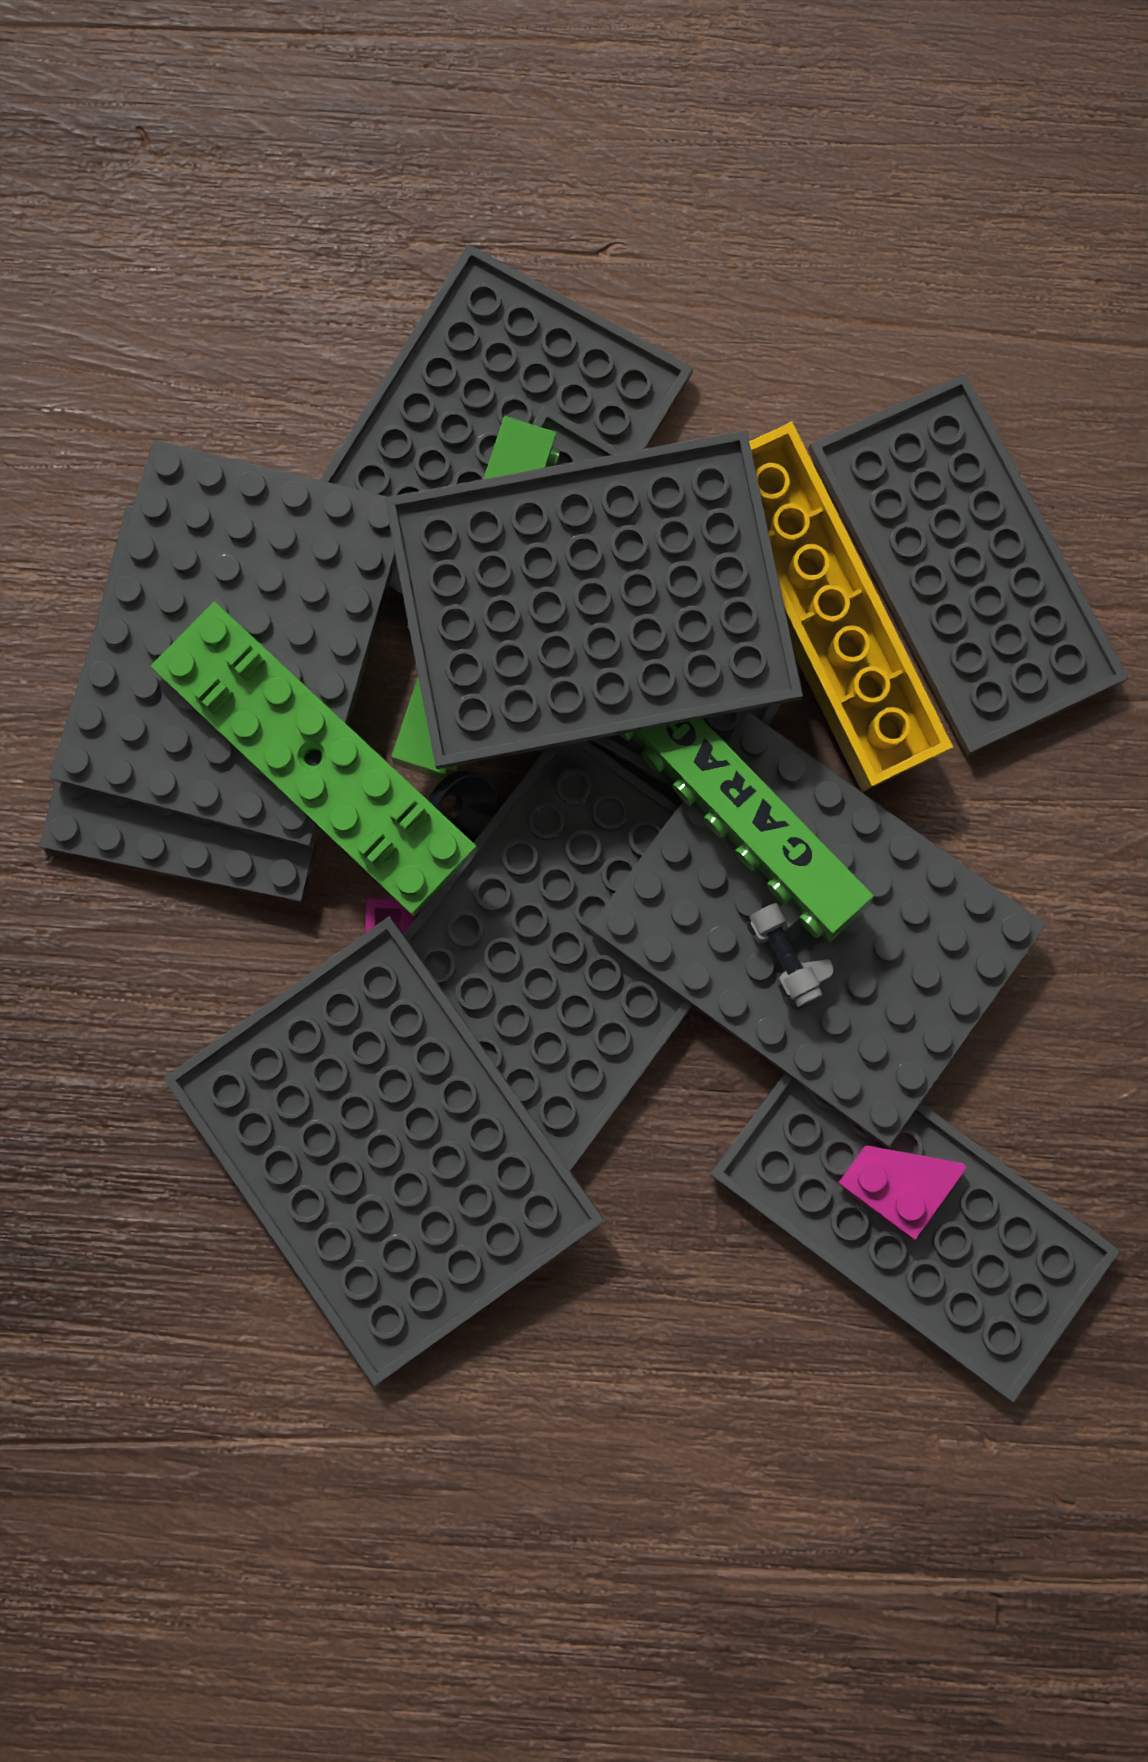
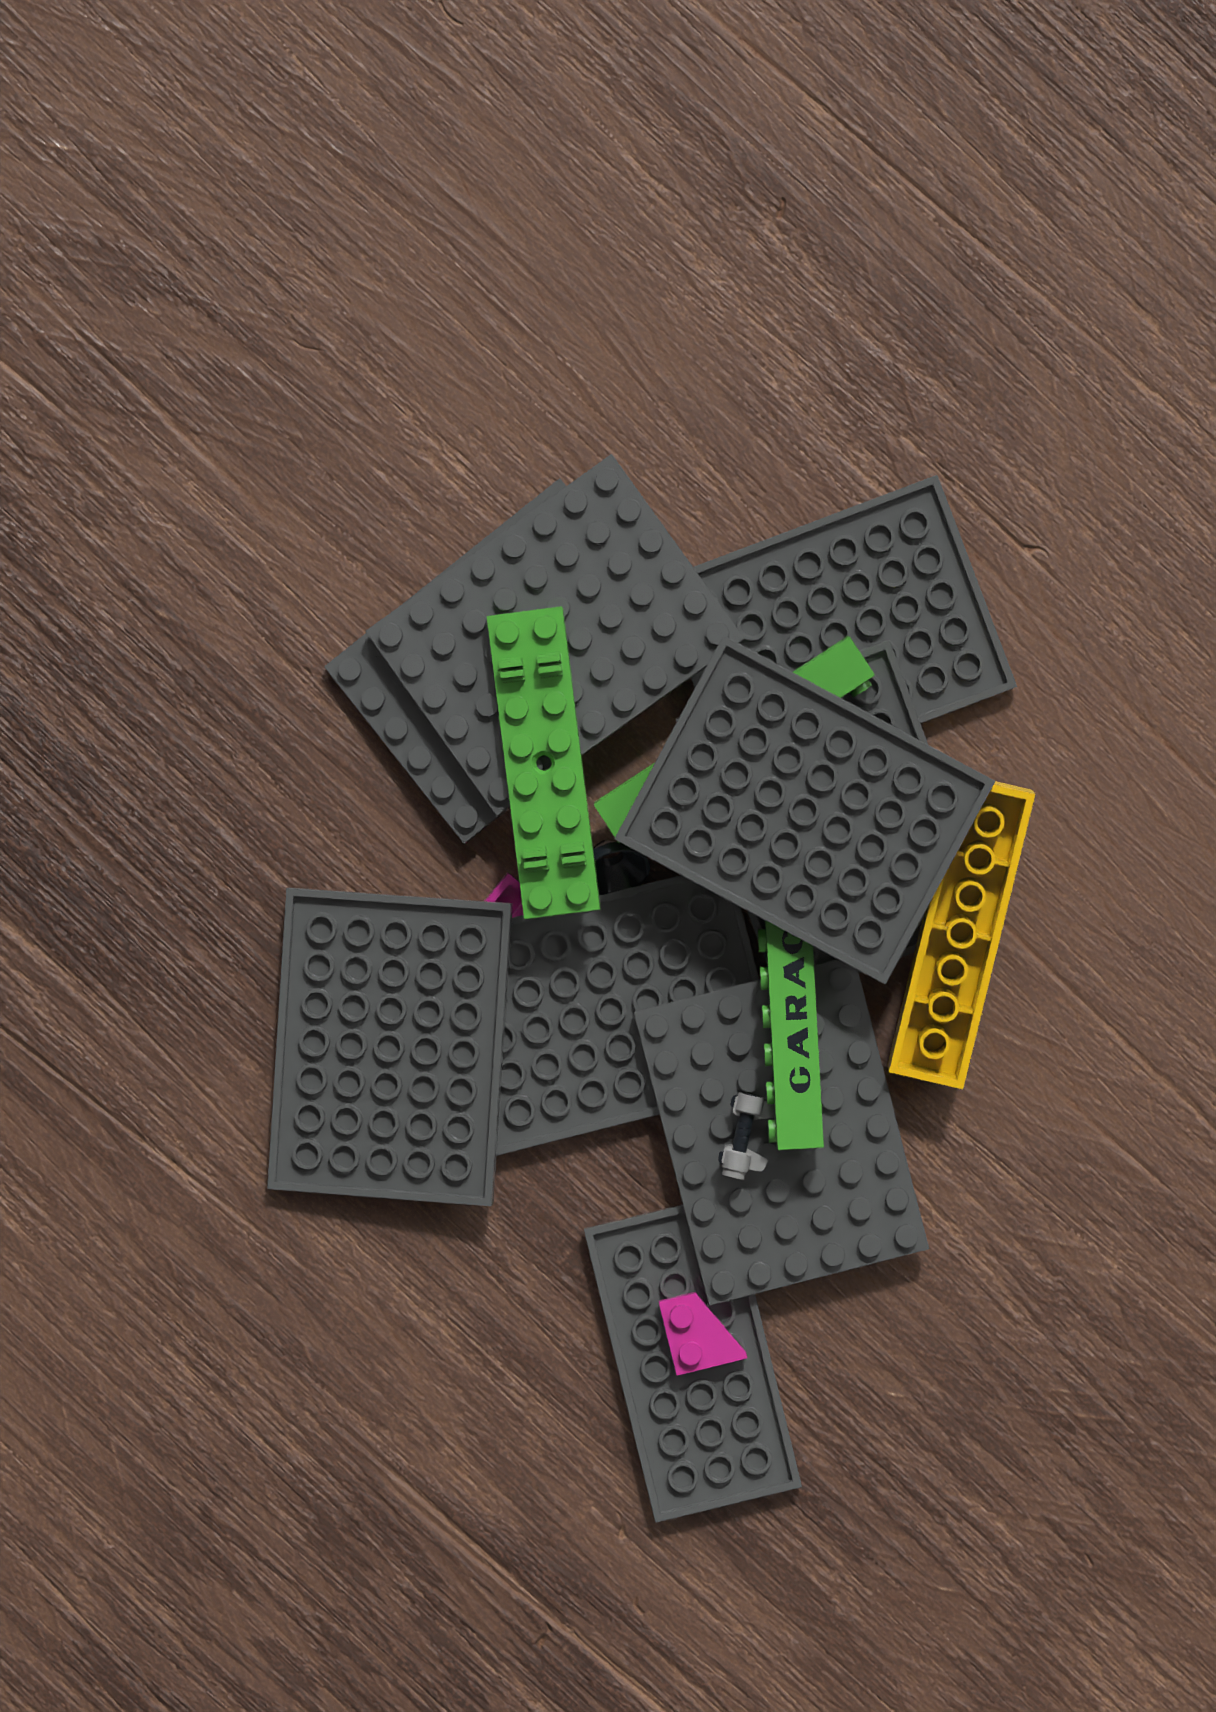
camera: 40 degrees right, 10 degrees up
(967, 564) = (1087, 967): dark grey plate -> none

